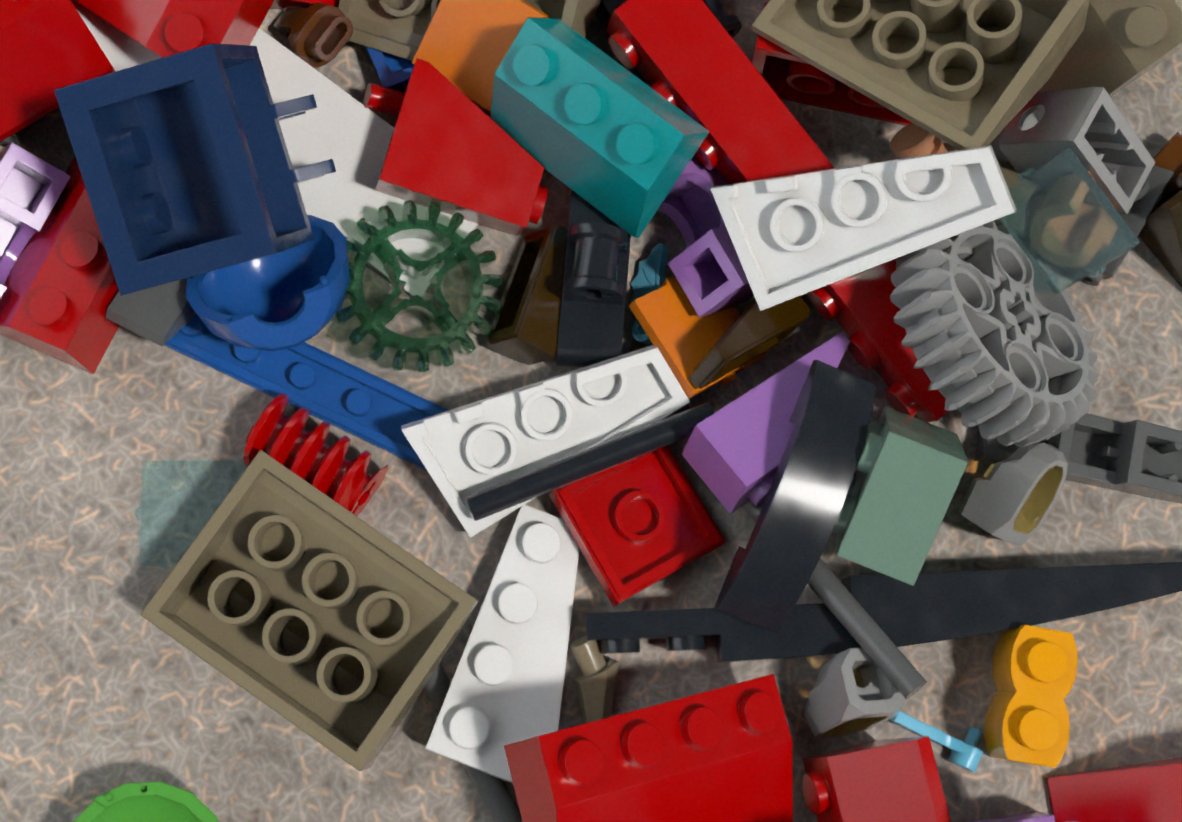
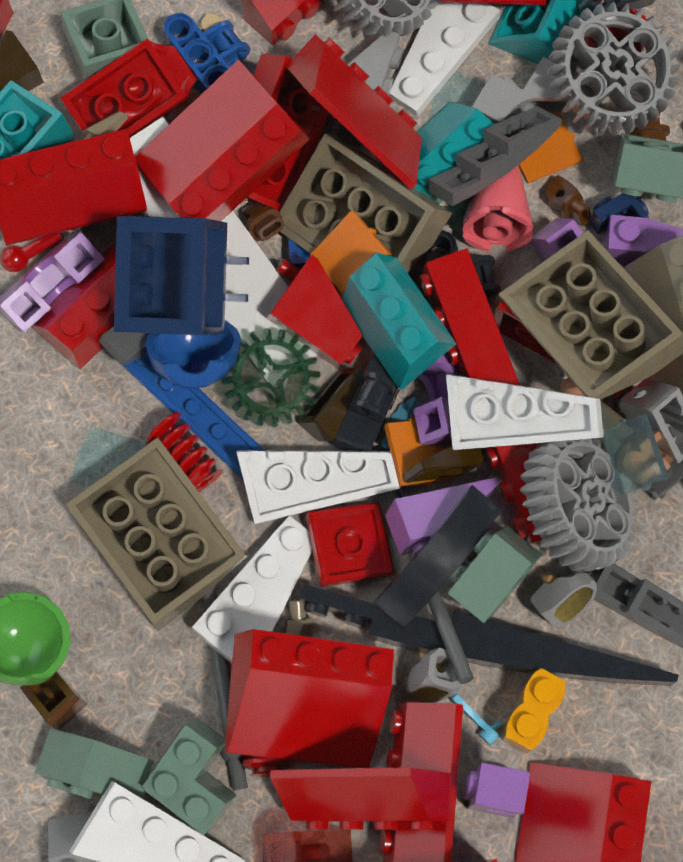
camera: 20 degrees right, 5 degrees down
(587, 462) = (329, 503): black bar -> none

